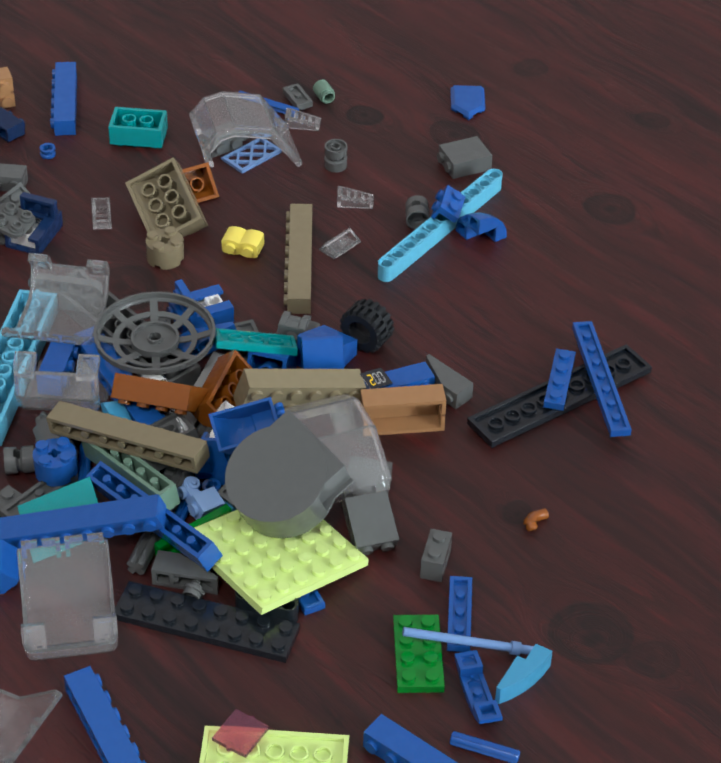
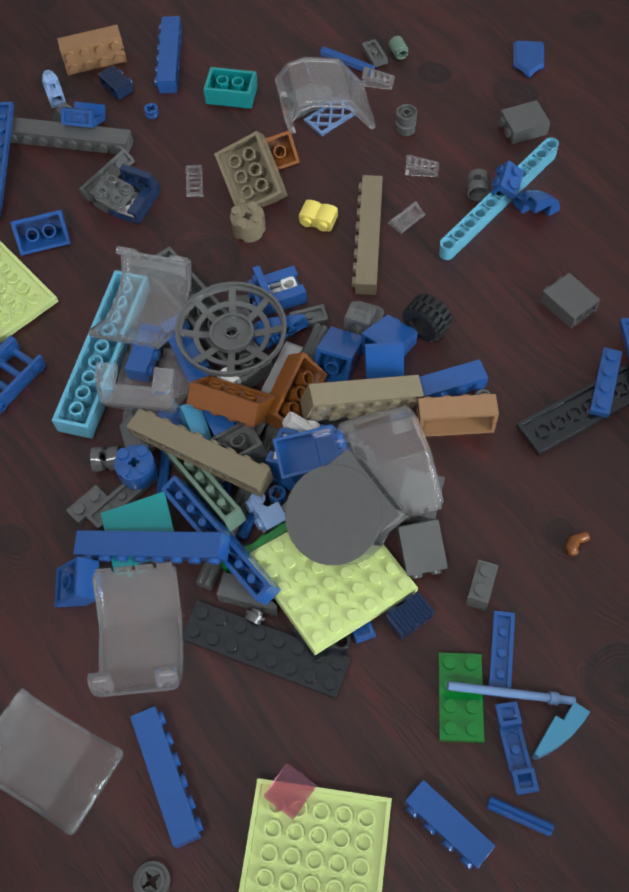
camera: 10 degrees right, 20 degrees up
(255, 342) = (323, 338): teal tile -> none
(360, 584) = (409, 615): none -> dark blue brick
(376, 378) = (433, 382): black sticker -> none
(456, 387) = (501, 381): dark grey slope -> none
(520, 312) = (569, 300): none -> dark grey brick

